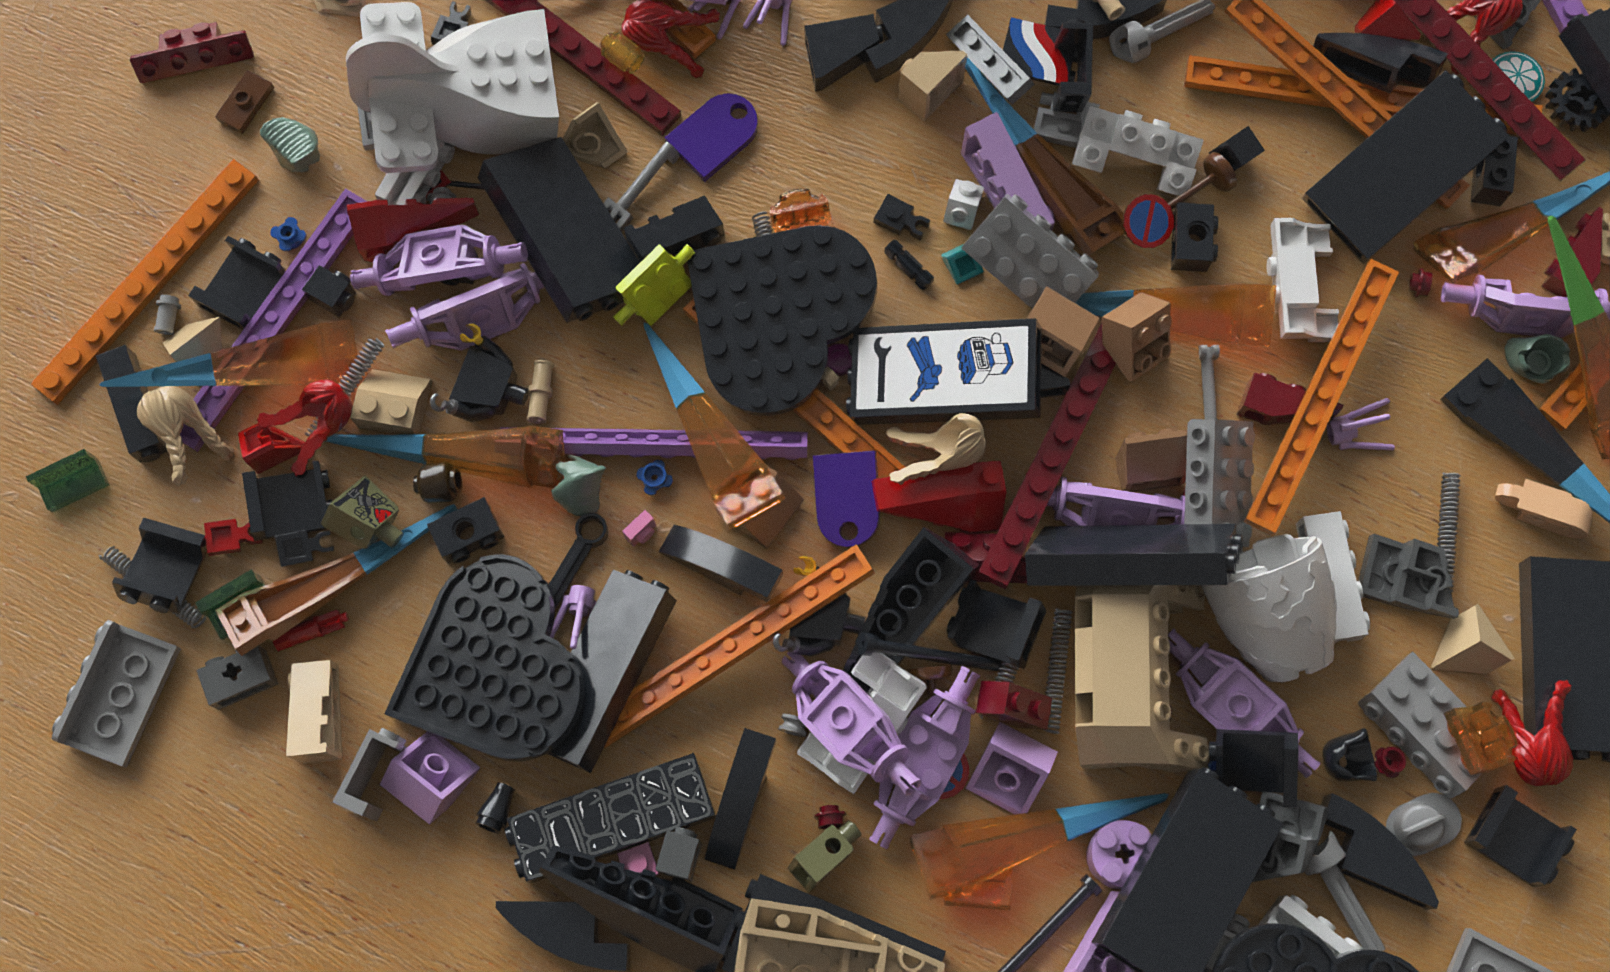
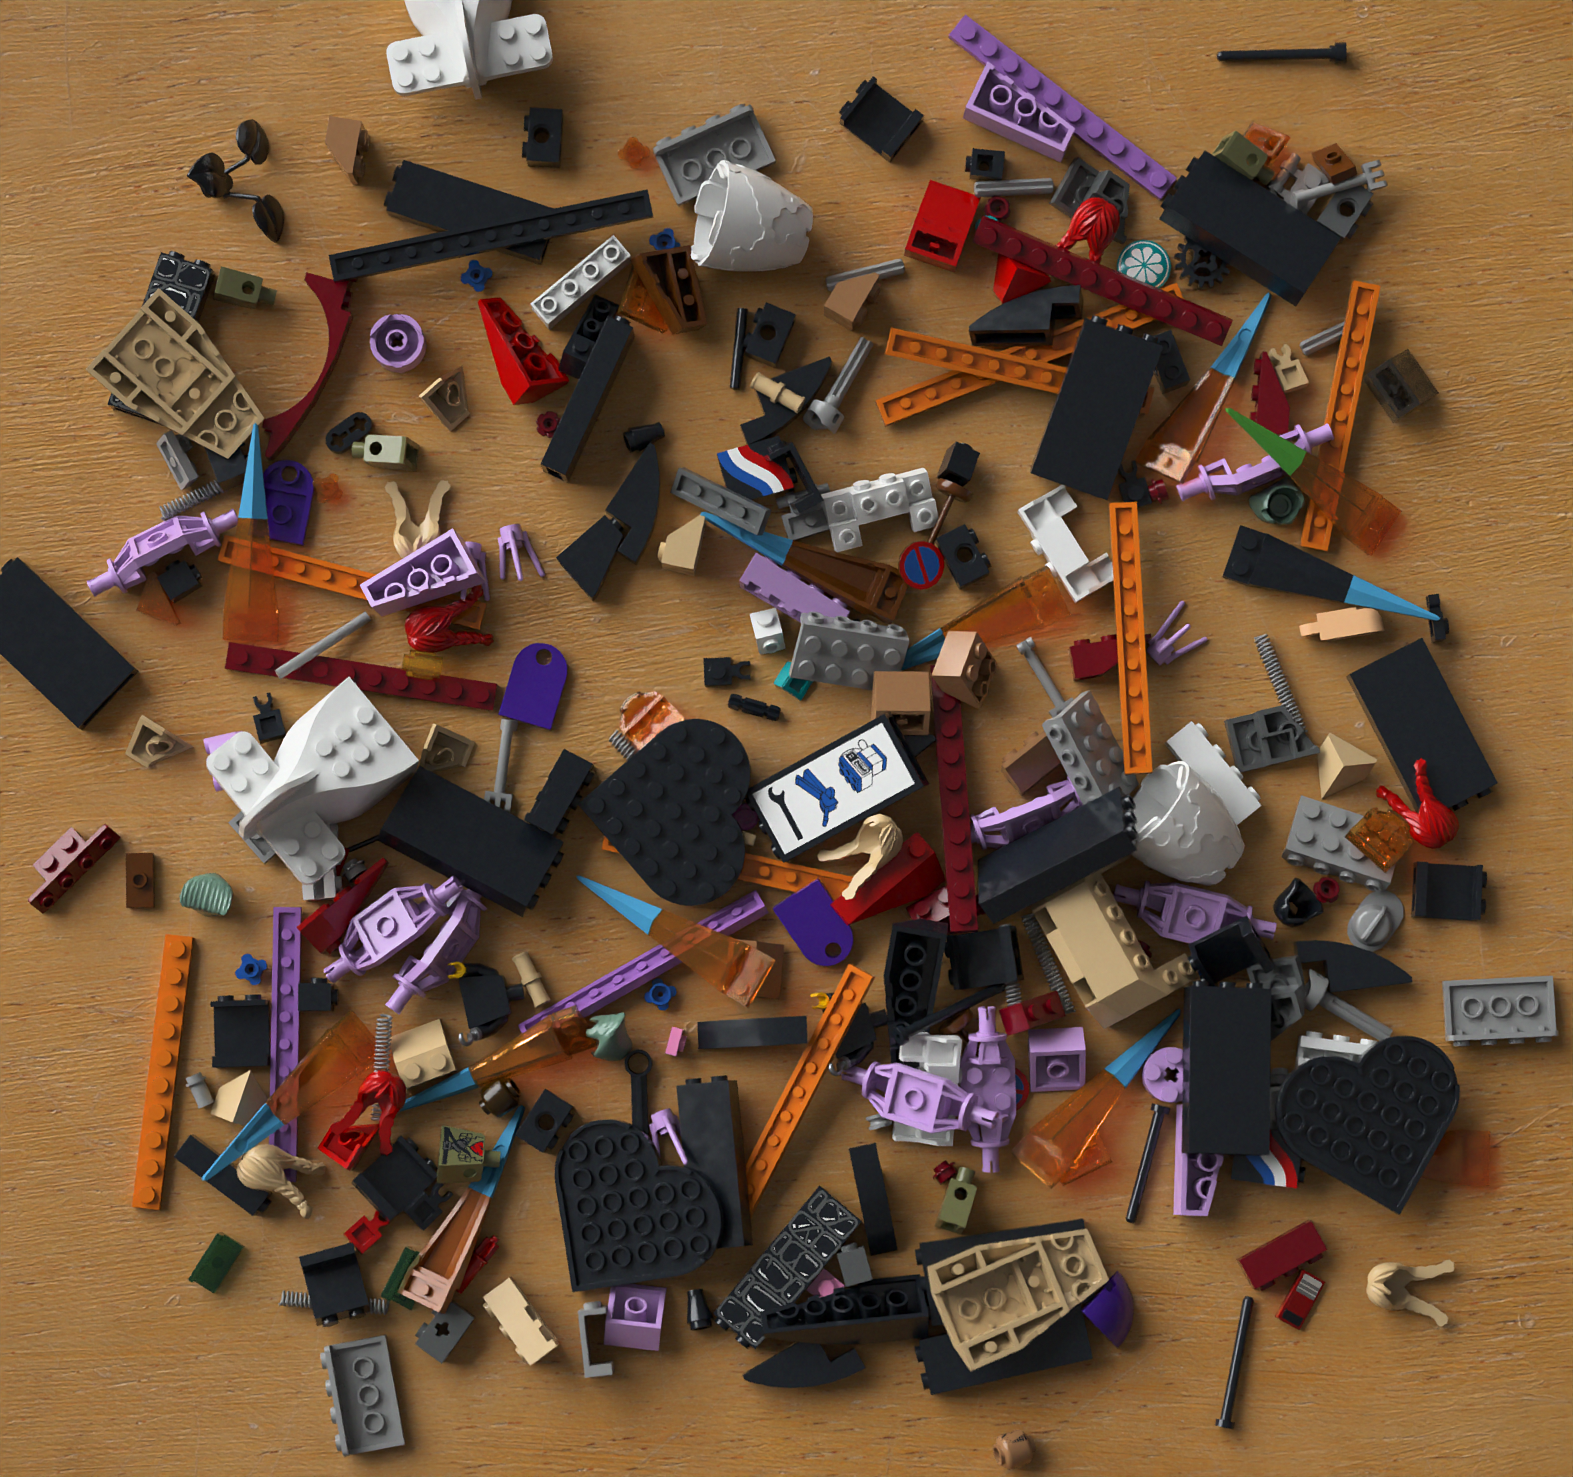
camera: 30 degrees left, 10 degrees up
(654, 285) = (571, 846): neon yellow plate -> none
(1398, 262) = (1134, 489): none -> black plate

